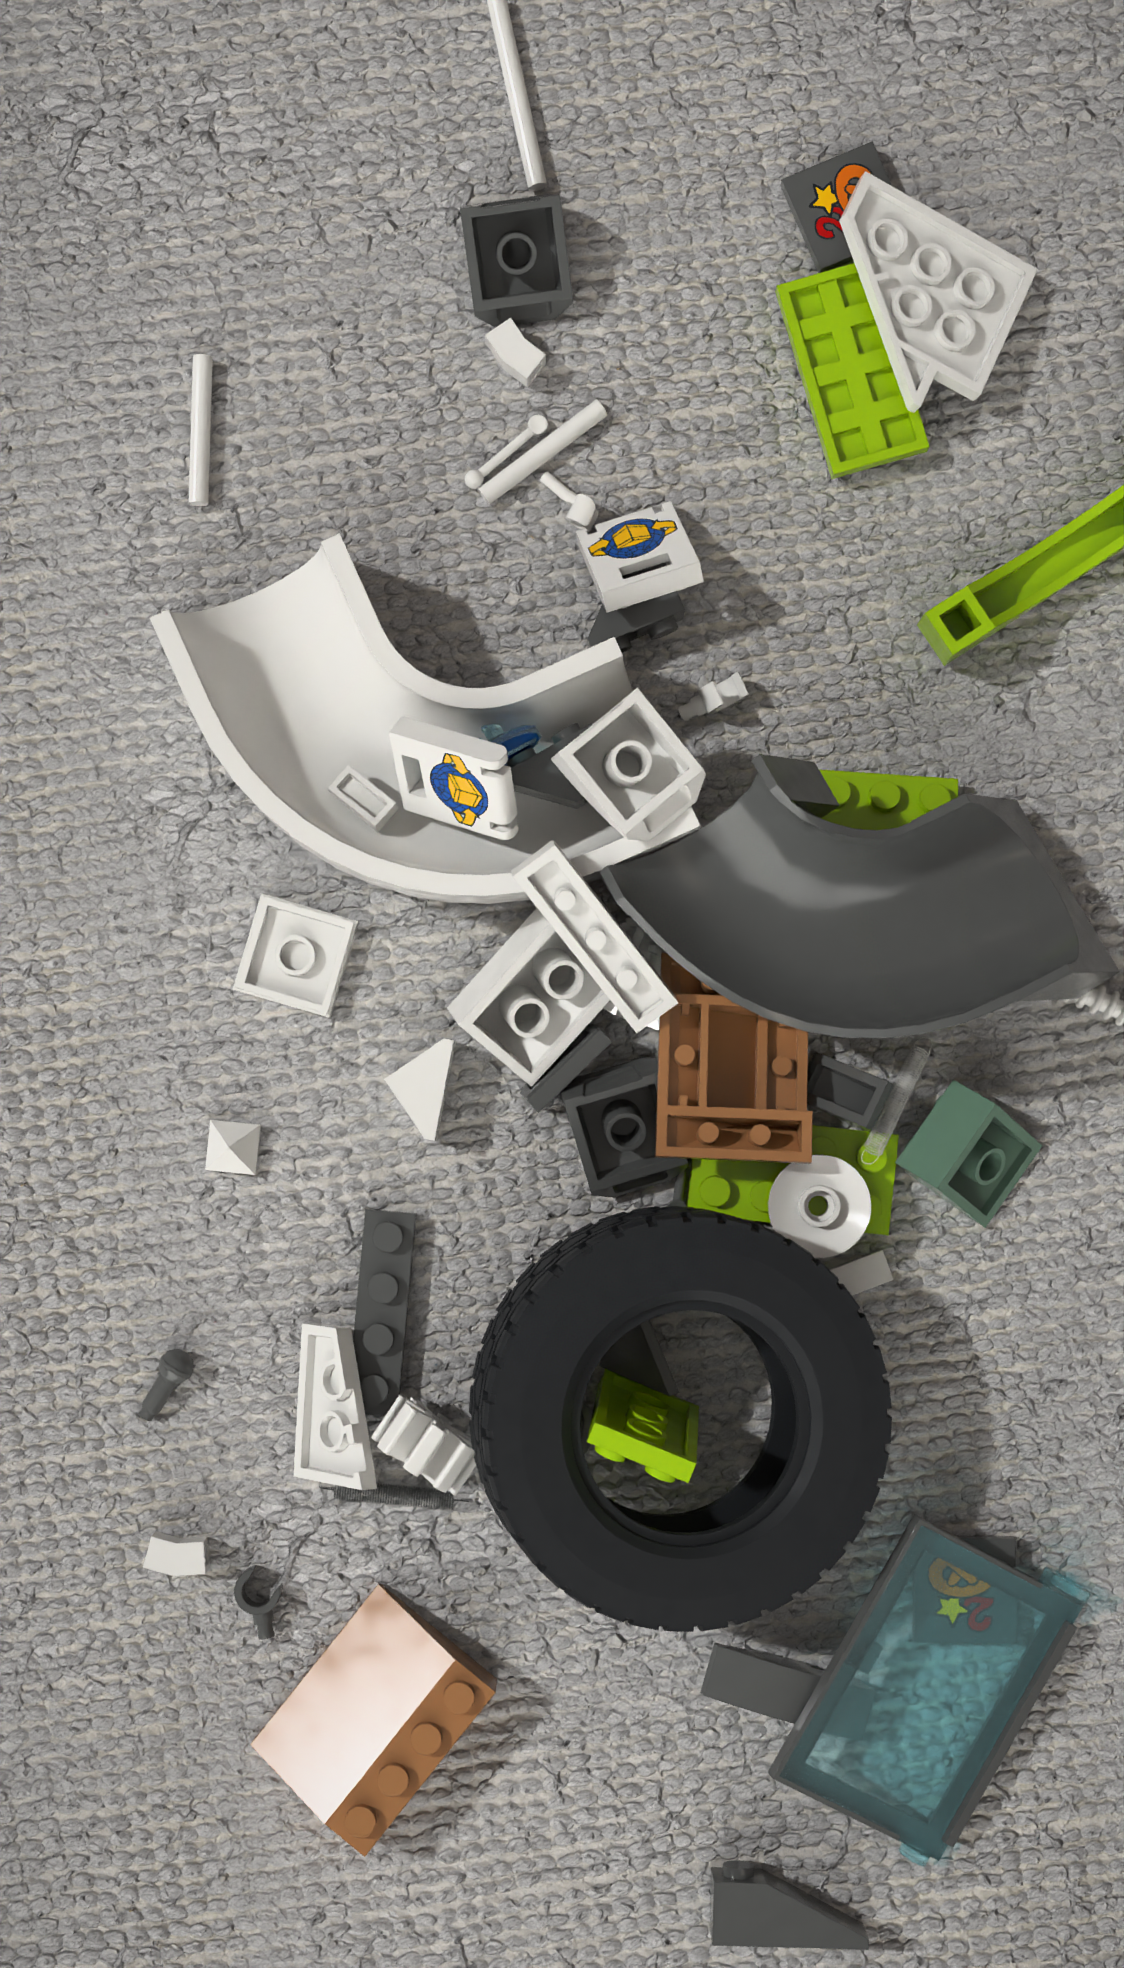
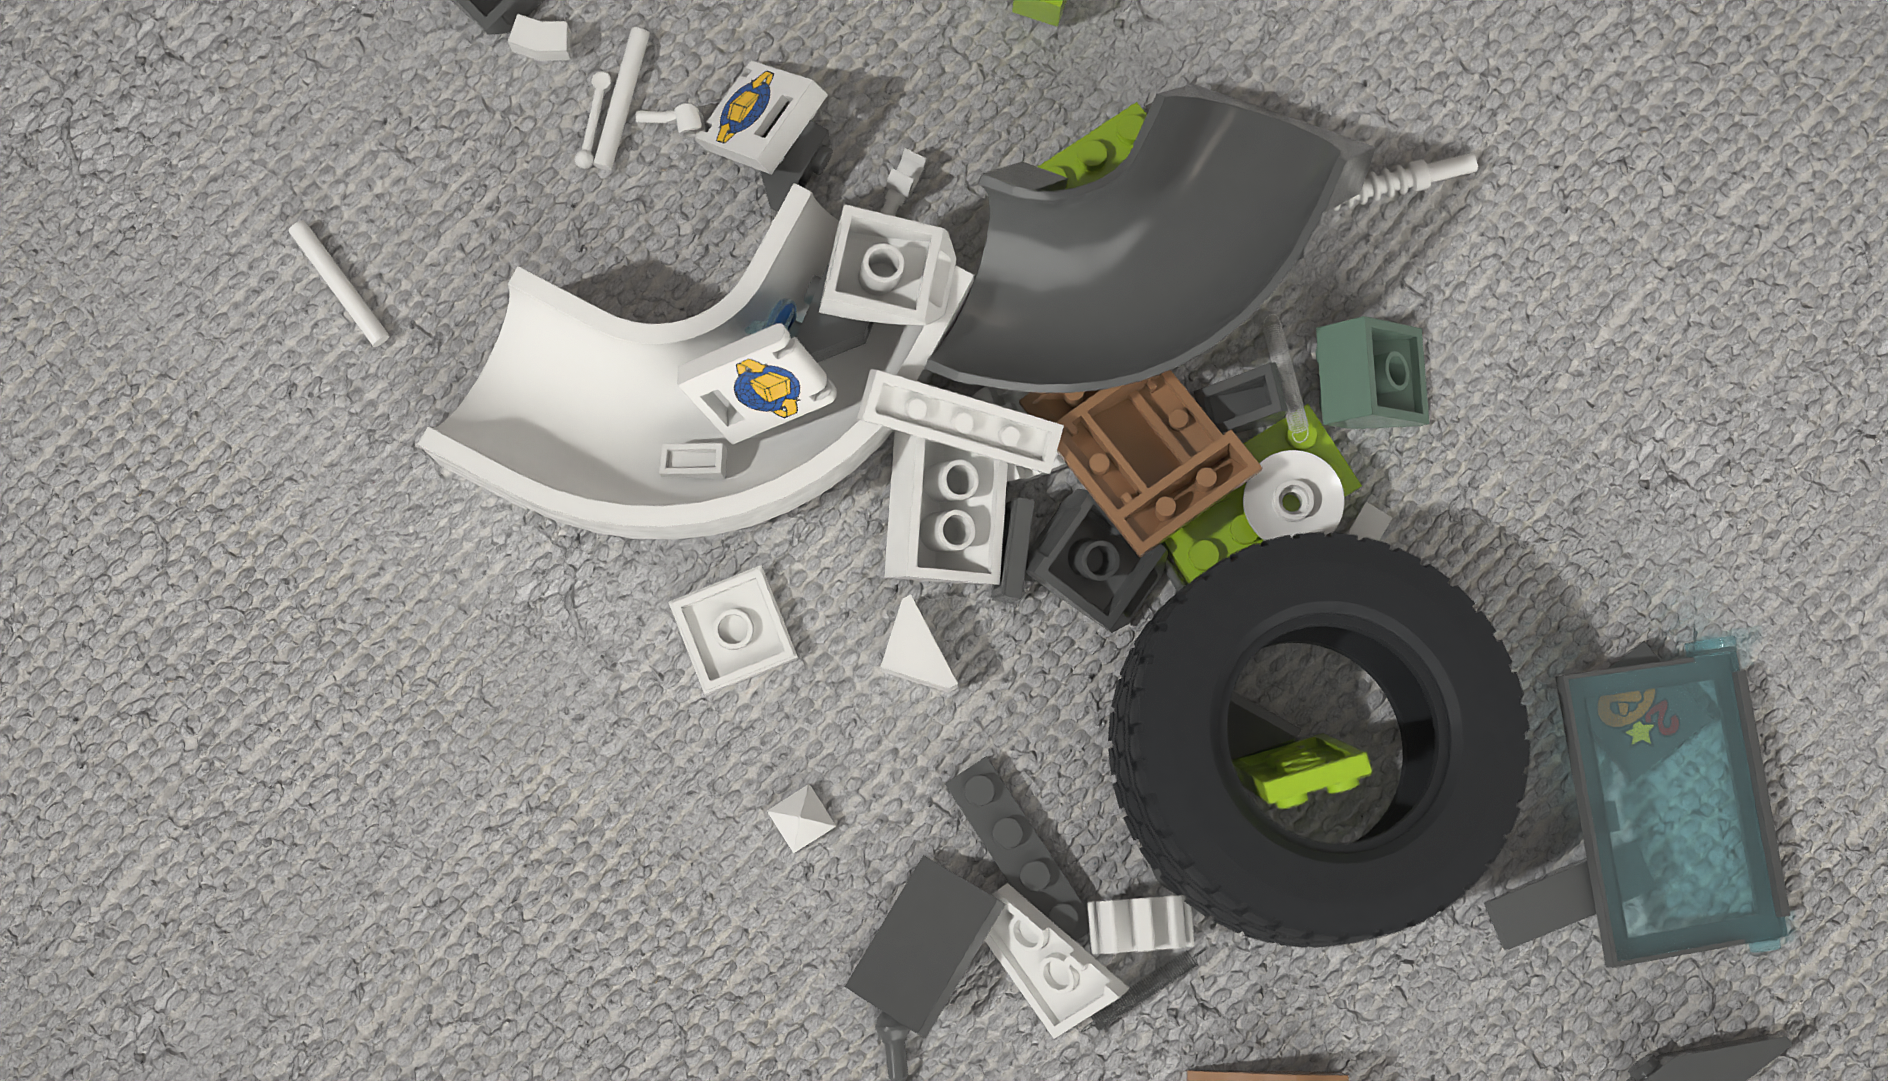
camera: 45 degrees left, 5 degrees down
(247, 1325) = (924, 946): none -> dark grey tile

